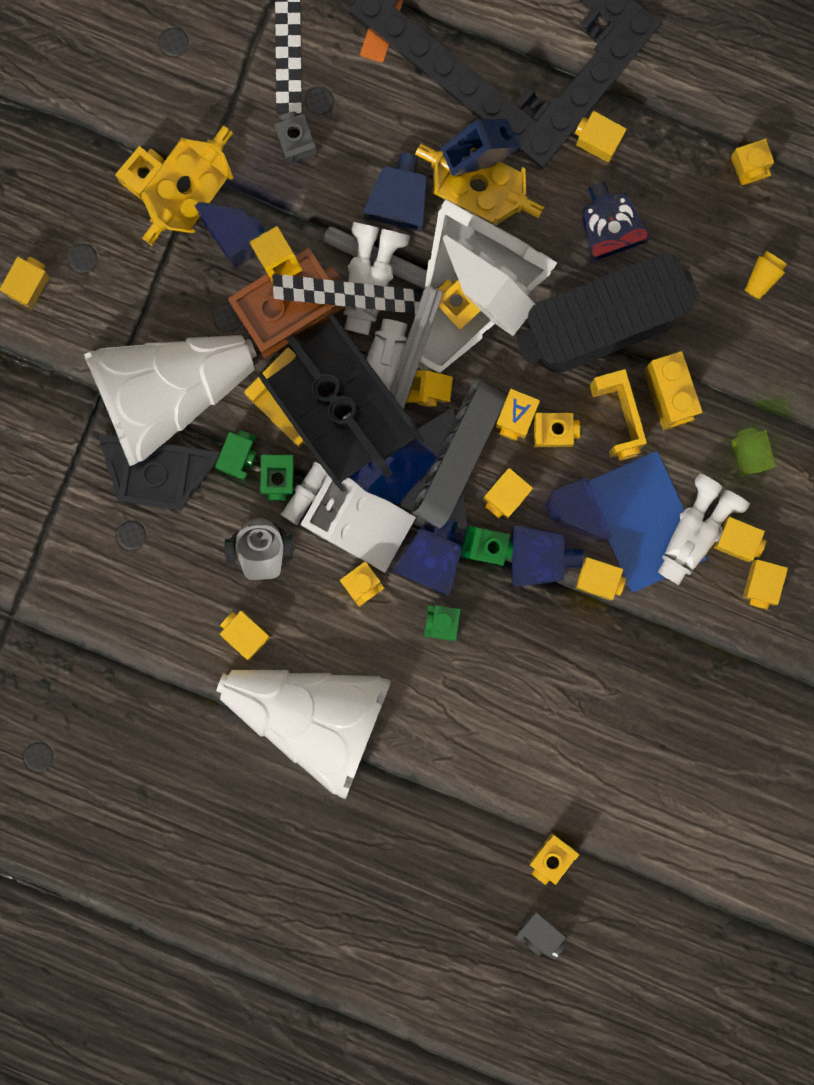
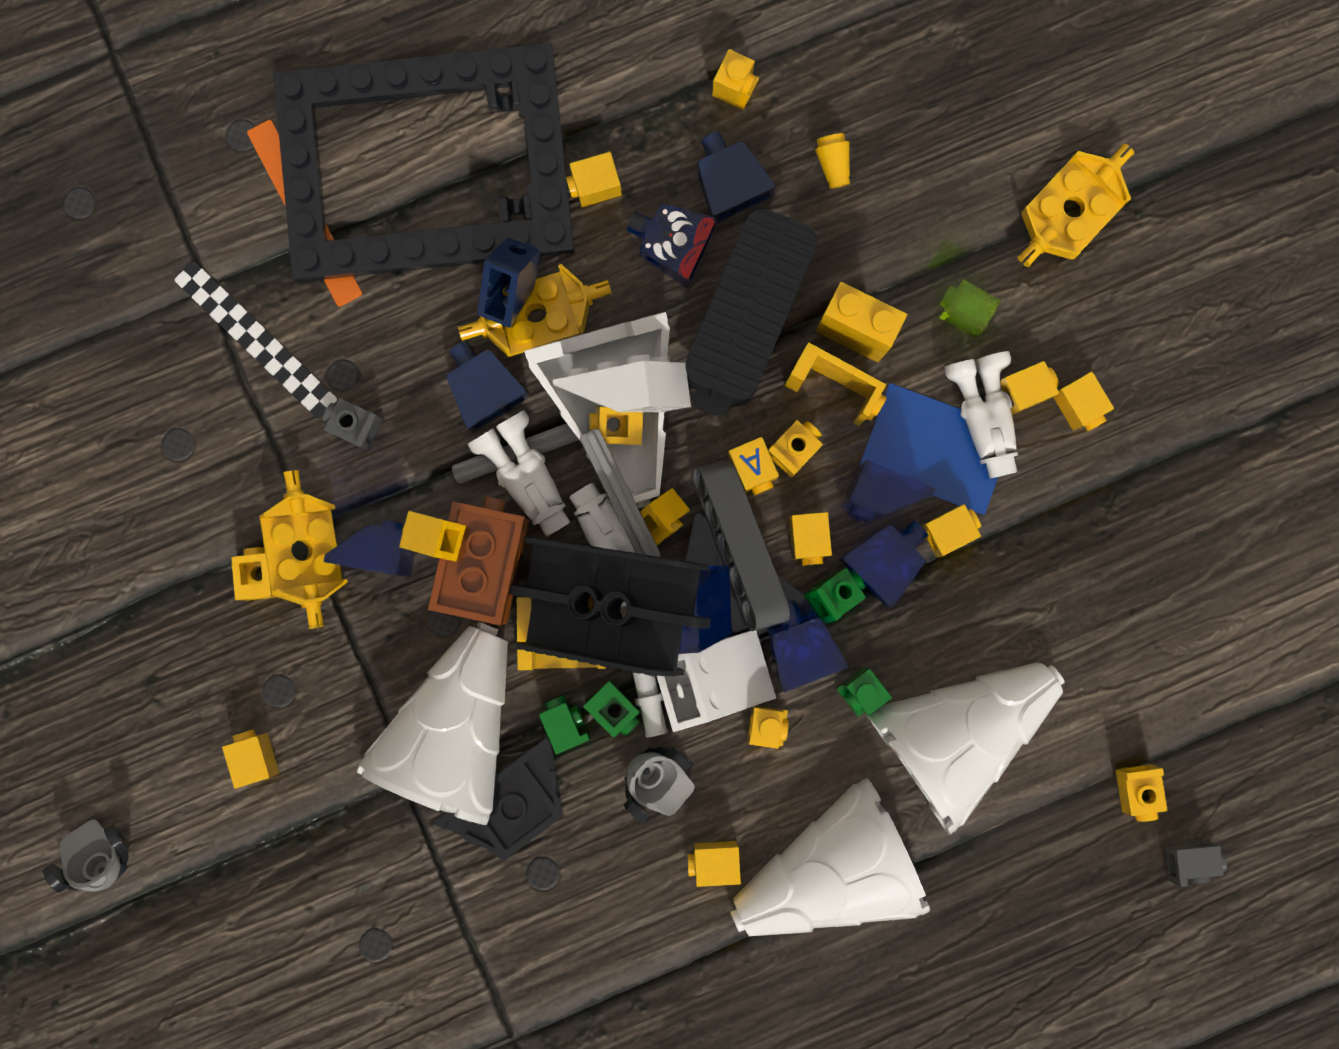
camera: 45 degrees left, 0 degrees up
(345, 294) = (519, 509): sticker -> none
(479, 715) = (967, 734): none -> white cone
(686, 221) = (731, 178): none -> dark blue torso

